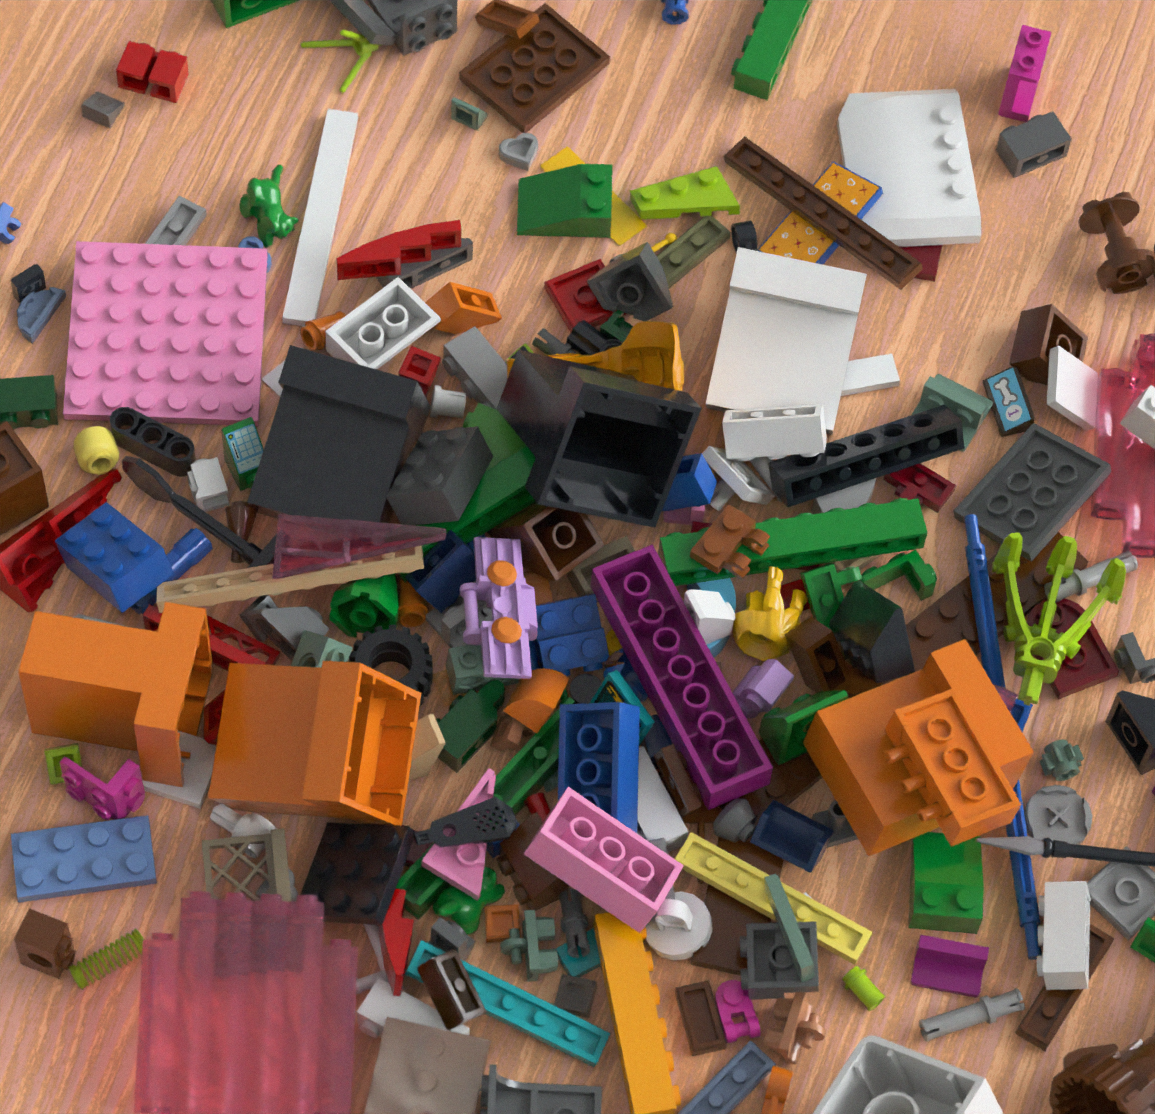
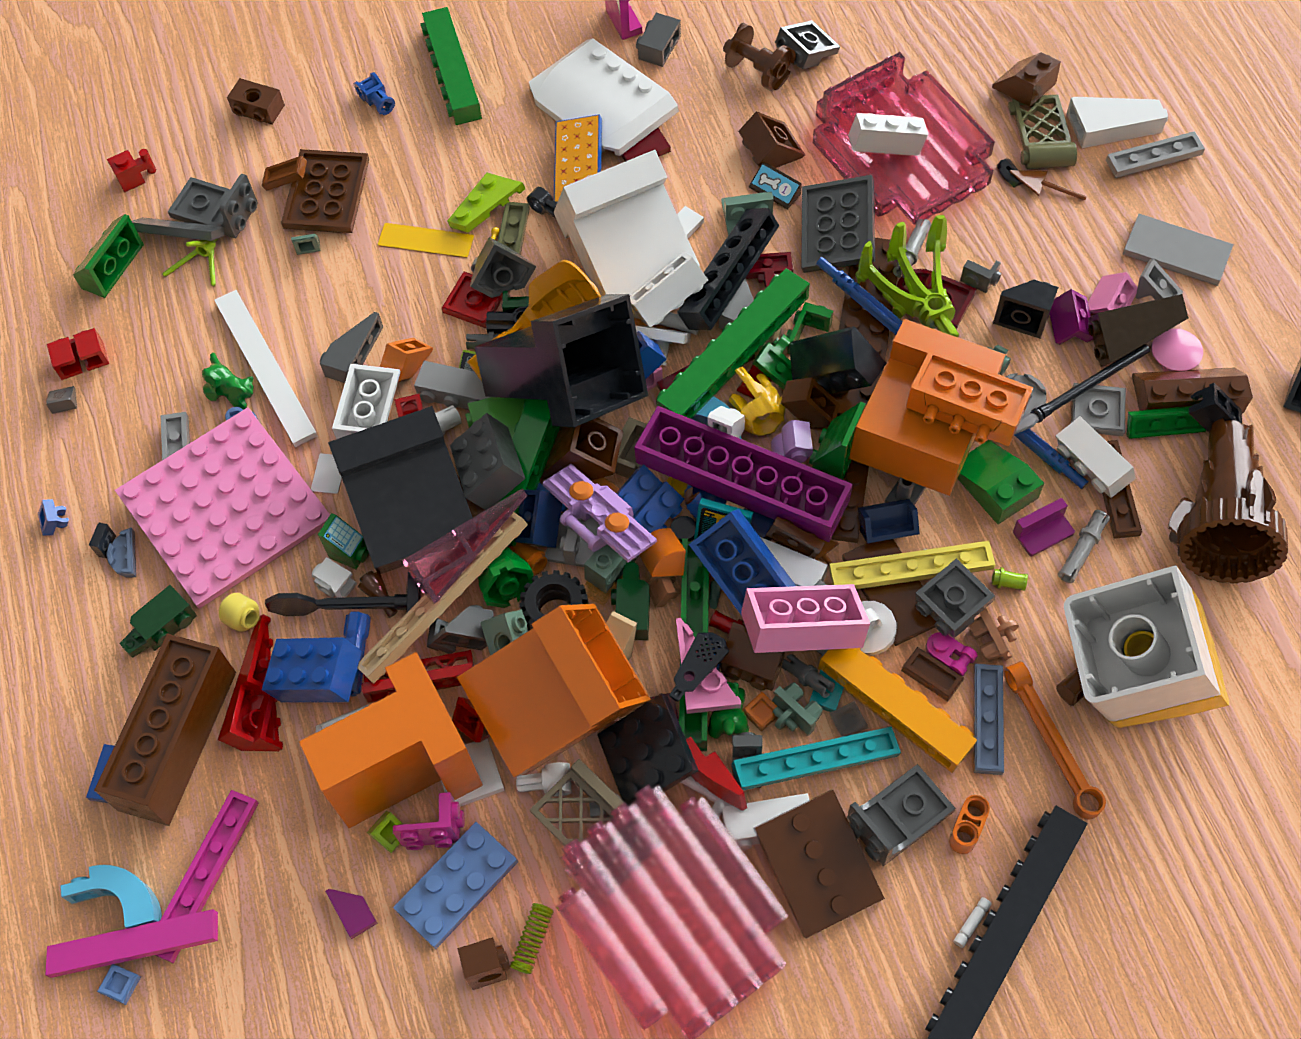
camera: 30 degrees left, 0 degrees up
(145, 429) = (261, 574): black beam -> none
(314, 333) = (324, 433): orange cone -> none
(387, 253) = (333, 352): red slope -> none
(451, 989) = (780, 777): dark brown slope -> none
(519, 151) = (358, 244): light grey tile -> none
(566, 202) = (415, 252): green slope -> none
(724, 537) = (696, 371): dark orange plate -> none
(735, 821) = (849, 537): dark grey cone -> none
(789, 927) = (948, 573): sand green tile -> none
(823, 213) = (573, 152): reddish brown tile -> none
(1072, 388) = (806, 152): white tile -> none

